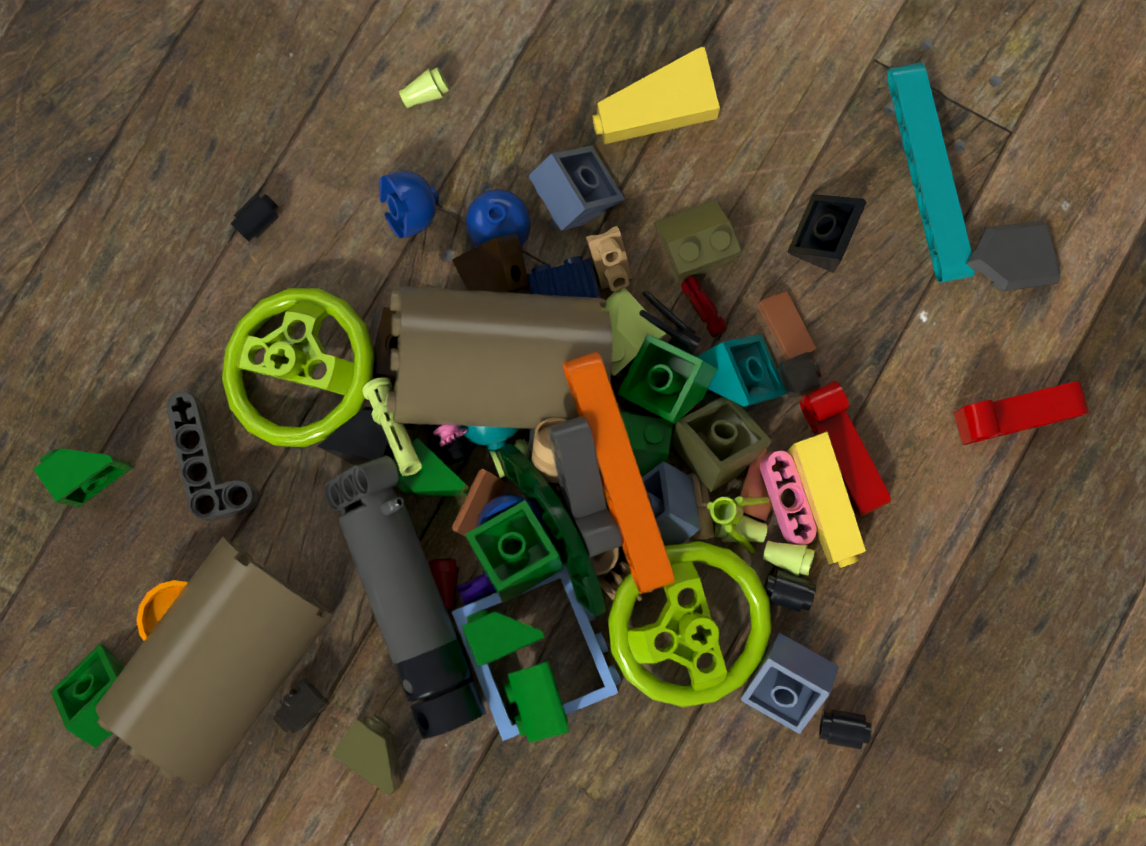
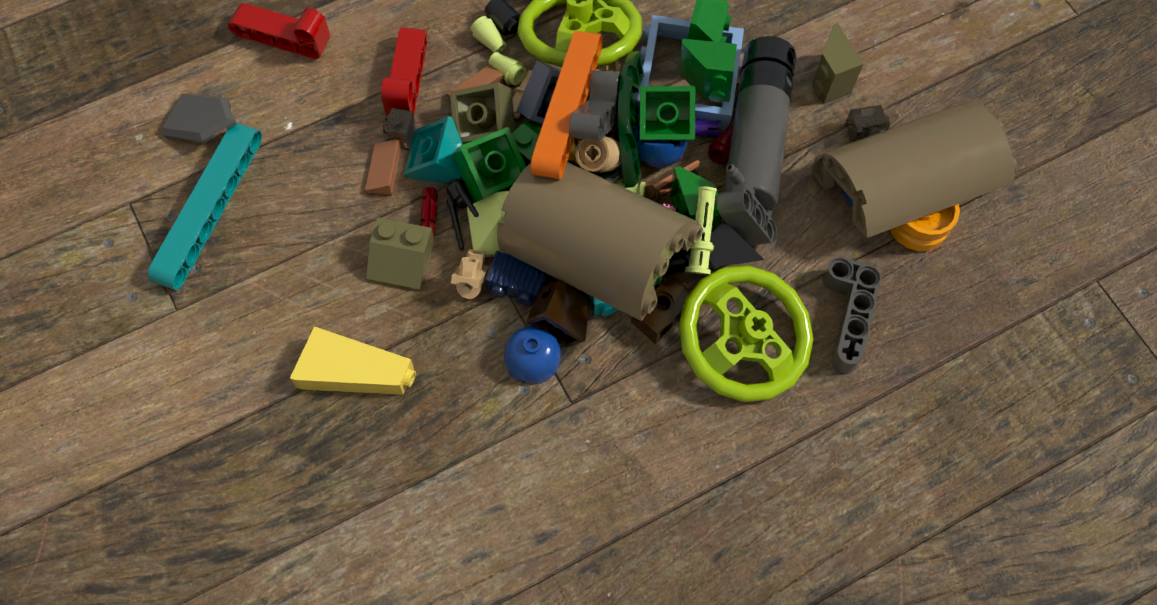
camera: 155 degrees left, 15 degrees down
(78, 475) = (951, 348): green slope -> none
(83, 690) = (1011, 210): green slope -> none
(255, 216) = (715, 468): black brick -> none
(409, 201) = (591, 402): blue cylinder -> none
(425, 88) = (519, 489): yellowish green cone -> none
(575, 186) = (458, 341): sand blue slope -> none
(730, 512) = (509, 64): lime plant -> none
(801, 504) = (461, 56): bright pink beam -> none
(826, 230) = (306, 205): black slope -> none
(828, 499) = (439, 51): light yellow slope -> none

